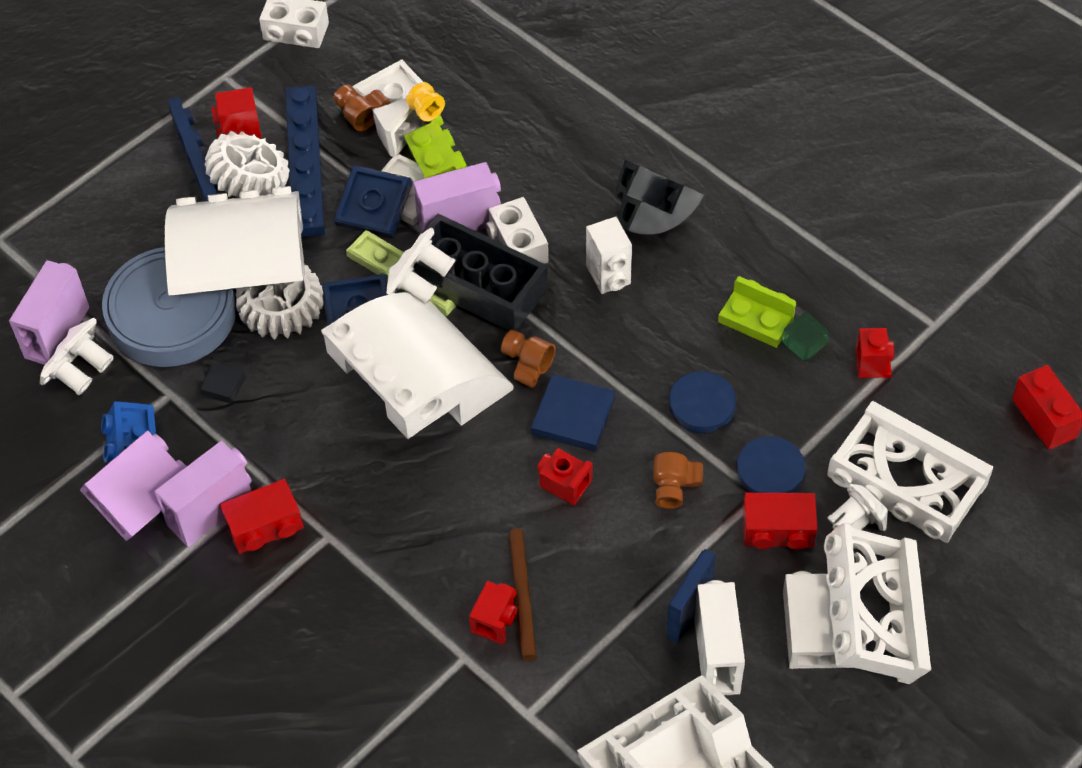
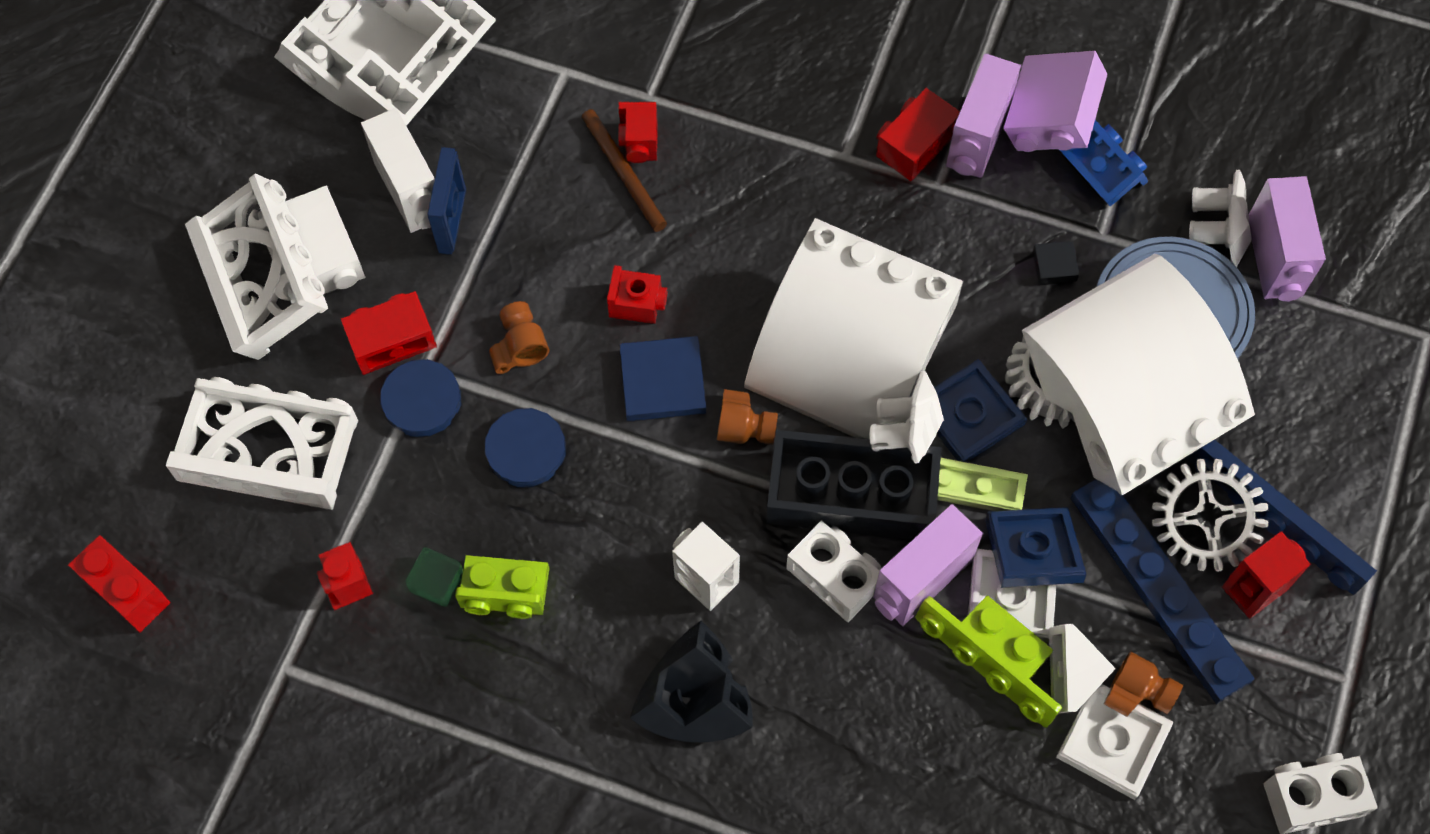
camera: 155 degrees right, 10 degrees up
(425, 102) = (1048, 686): yellow wheel -> none
(860, 510) = (295, 355): white connector -> none

